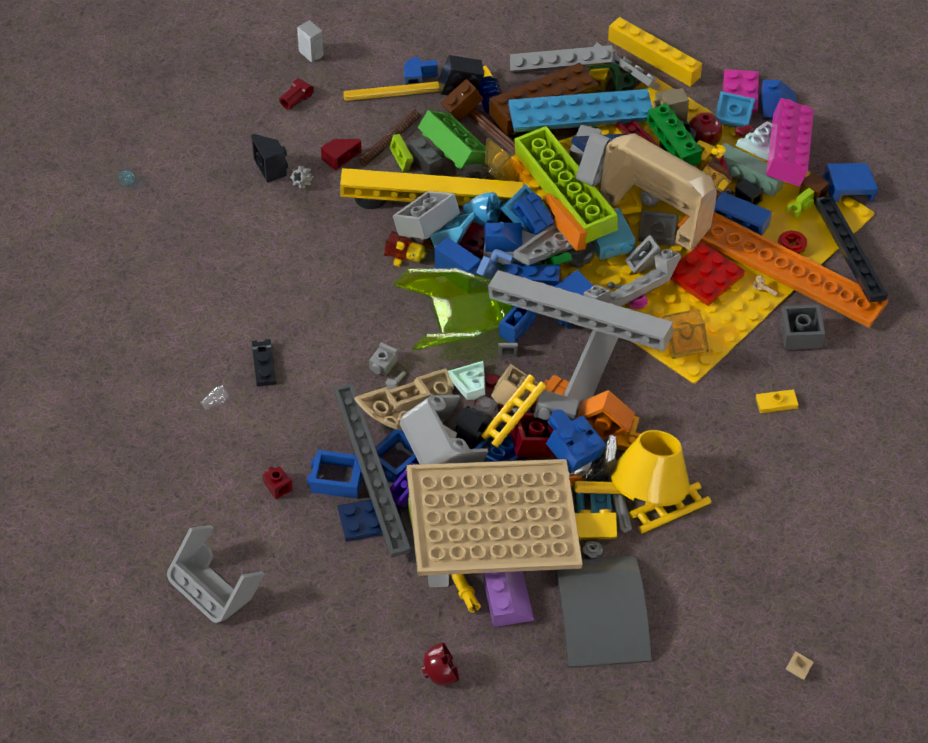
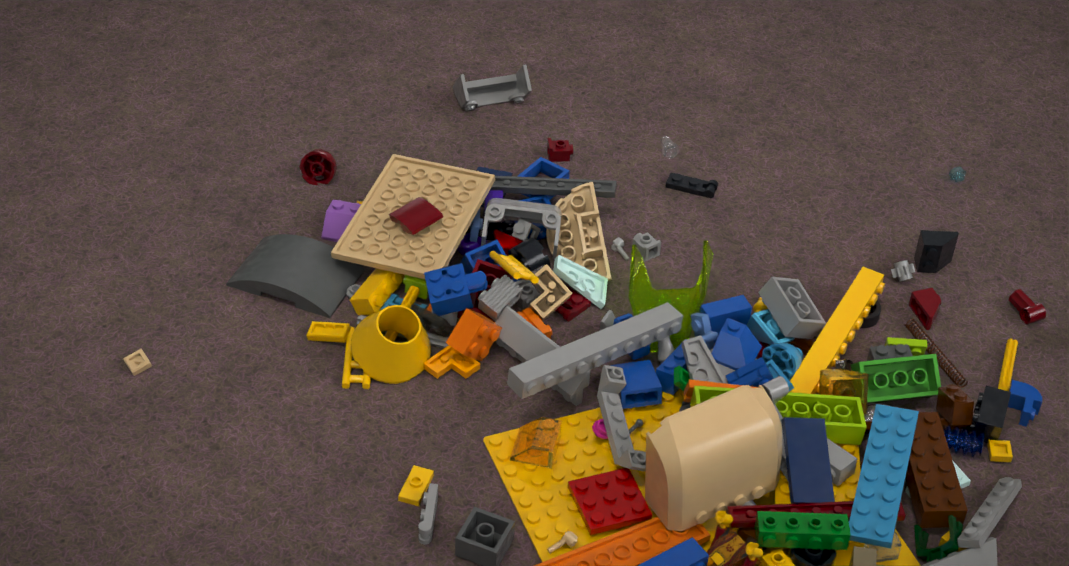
camera: 115 degrees right, 10 degrees down
(504, 503) = (416, 215): none -> dark red slope
(659, 541) = (328, 331): none -> yellow plate
(801, 375) = (428, 515): none -> light grey plate

